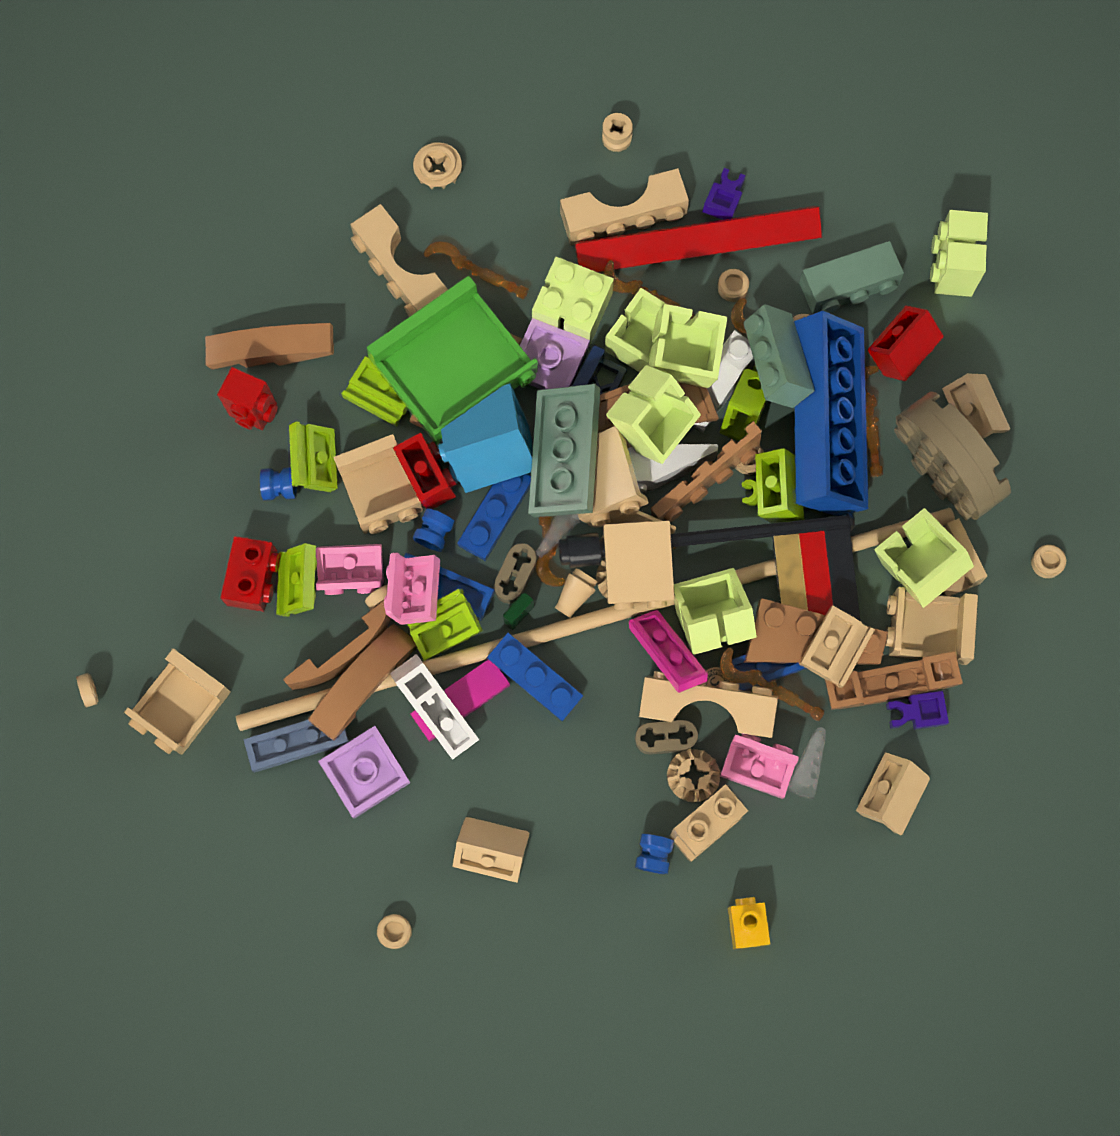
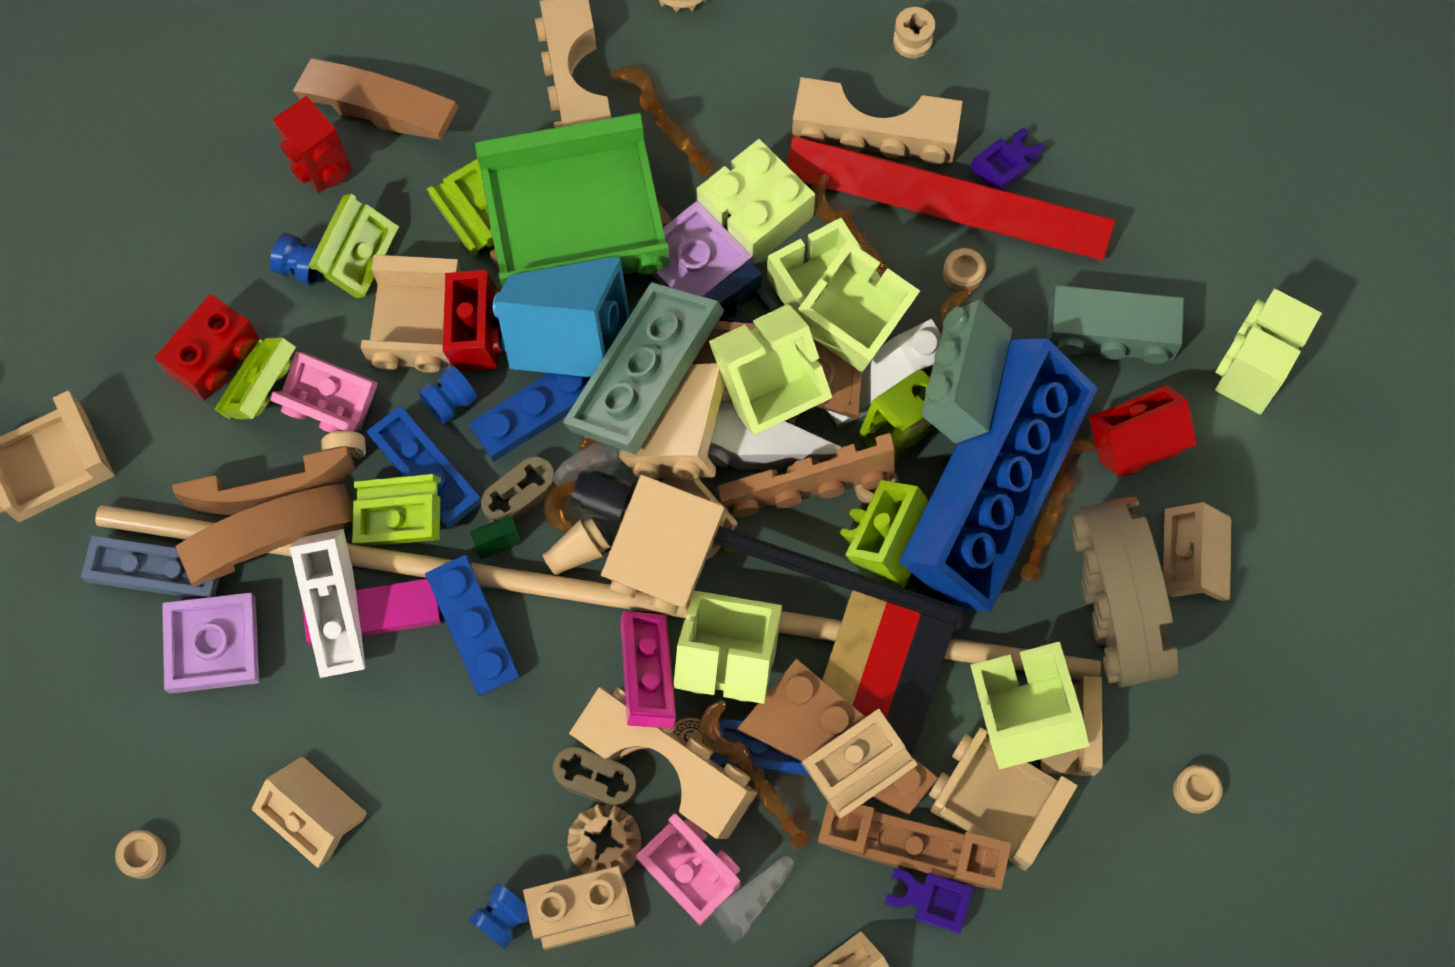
camera: 25 degrees right, 5 degrees down
(412, 588) = (377, 448): bright pink bracket -> none

